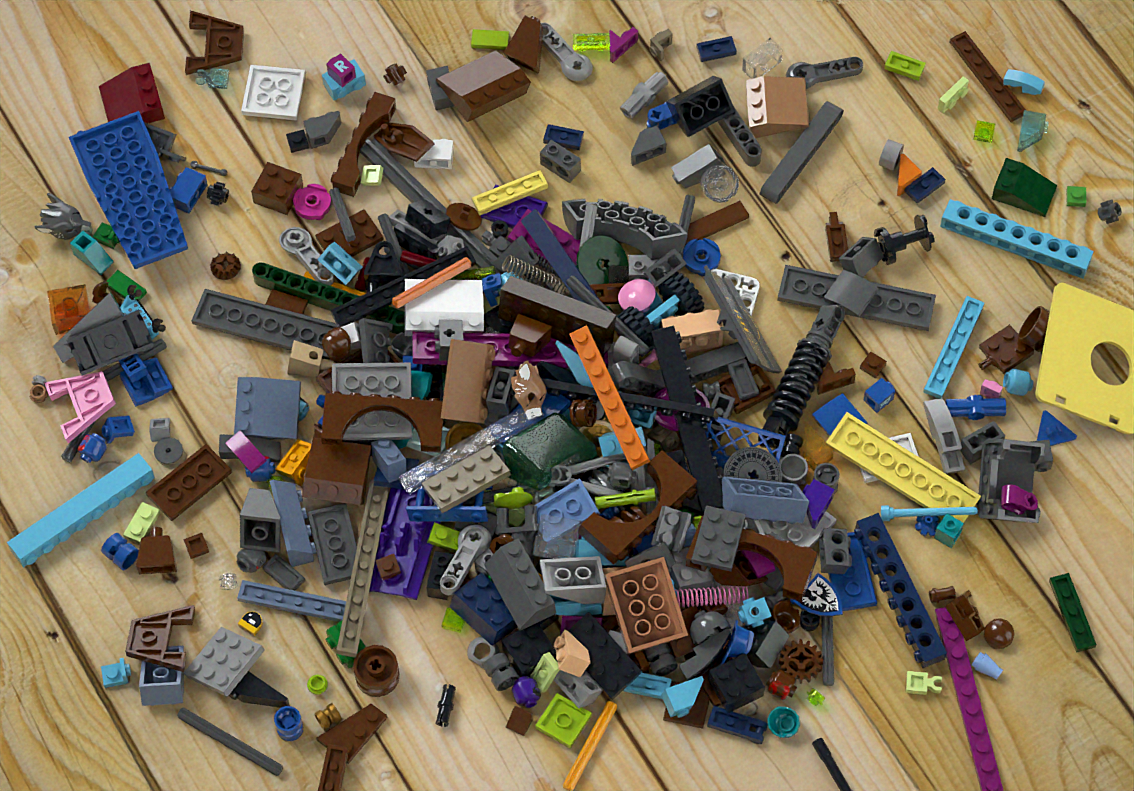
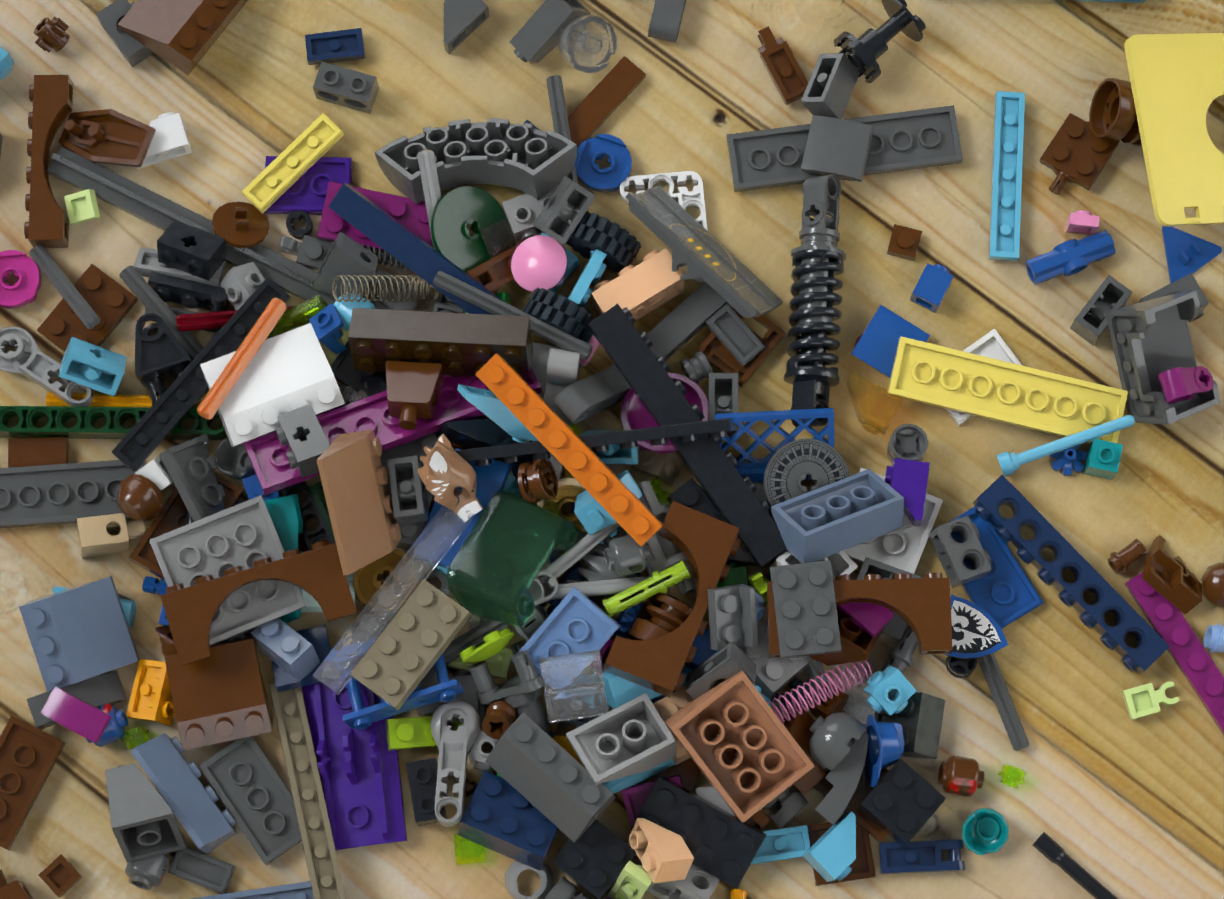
camera: 20 degrees left, 15 degrees up
(360, 284) = (132, 385): dark red axle -> none
(388, 566) = (349, 810): reddish brown plate -> none
(786, 616) = (929, 674): reddish brown hair -> none
(792, 445) = (842, 411): black wheel -> none
(793, 469) = (856, 446): piece -> none
(810, 661) = (967, 718): reddish brown gear -> none
(831, 381) = (855, 290): reddish brown slope -> none
(945, 435) = (1045, 315): light grey slope -> none
(1017, 382) = (1114, 198): medium azure head -> none

